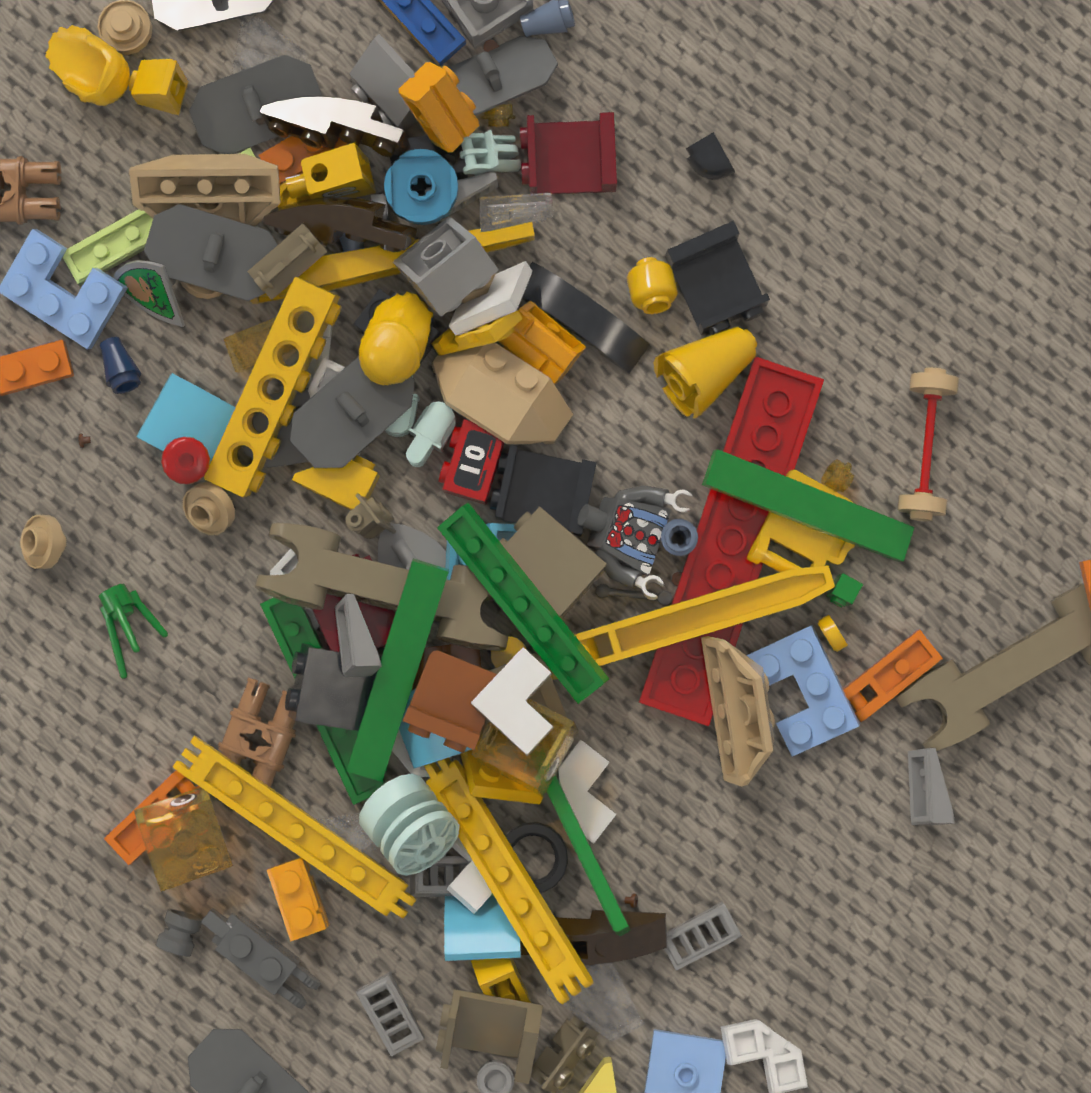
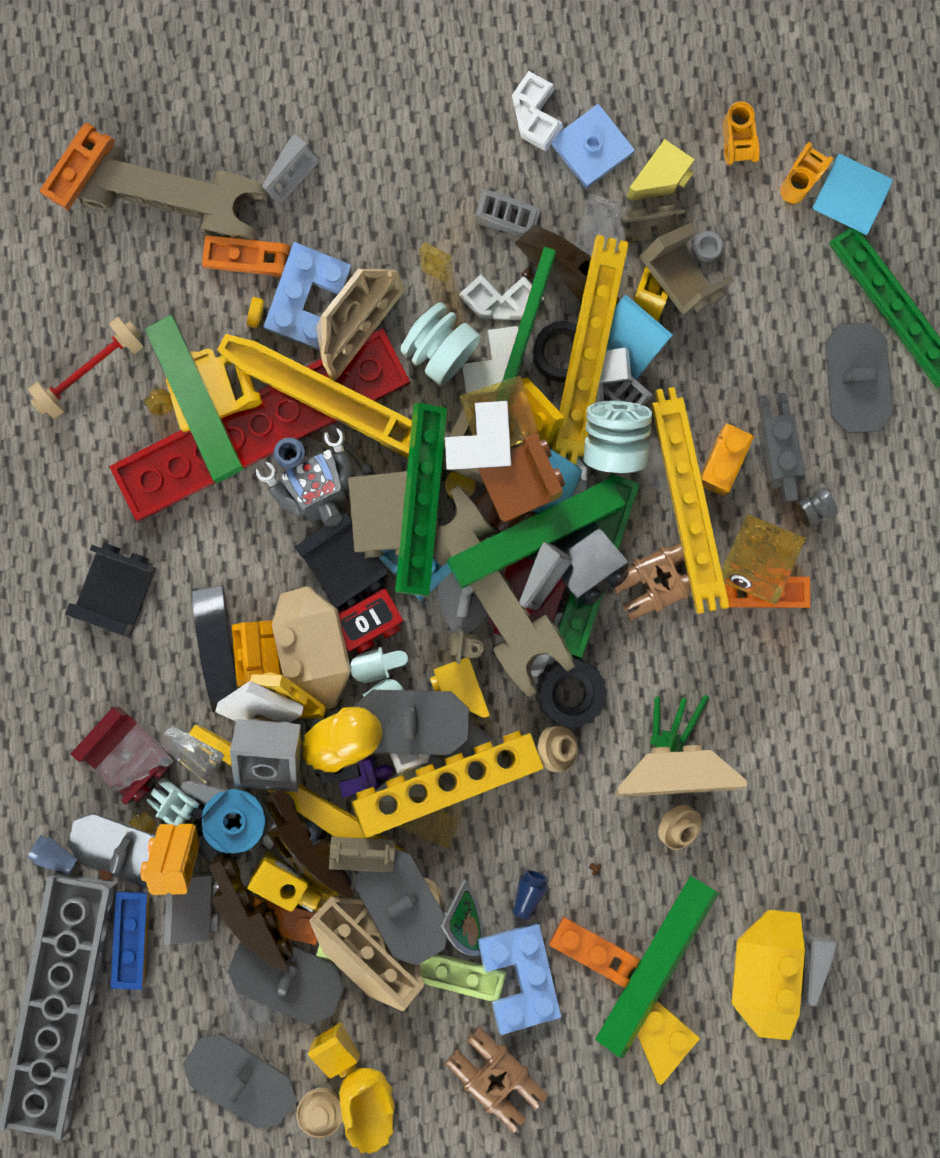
camera: 135 degrees left, 0 degrees up
(82, 583) = (680, 772): none -> tan wedge
(185, 460) = (544, 790): red head -> none
(187, 412) = (520, 816): medium azure slope -> none
(215, 560) = (587, 709): none -> black tyre
(344, 330) = (369, 777): none -> dark purple piece
(388, 982) = (728, 365): light grey slope -> none
(558, 158) = (132, 759): none -> clear wing
(638, 839) = (489, 304): none -> white tile
(643, 758) = (435, 339): none -> light aqua wheel
(652, 285) = (154, 624): yellow head -> none
(704, 368) = (174, 541): yellow cone -> none
(709, 158) = (41, 669): black piece -> none
(716, 827) = (435, 262): none -> clear yellow tile
(845, 590) = (222, 325): green piece -> none

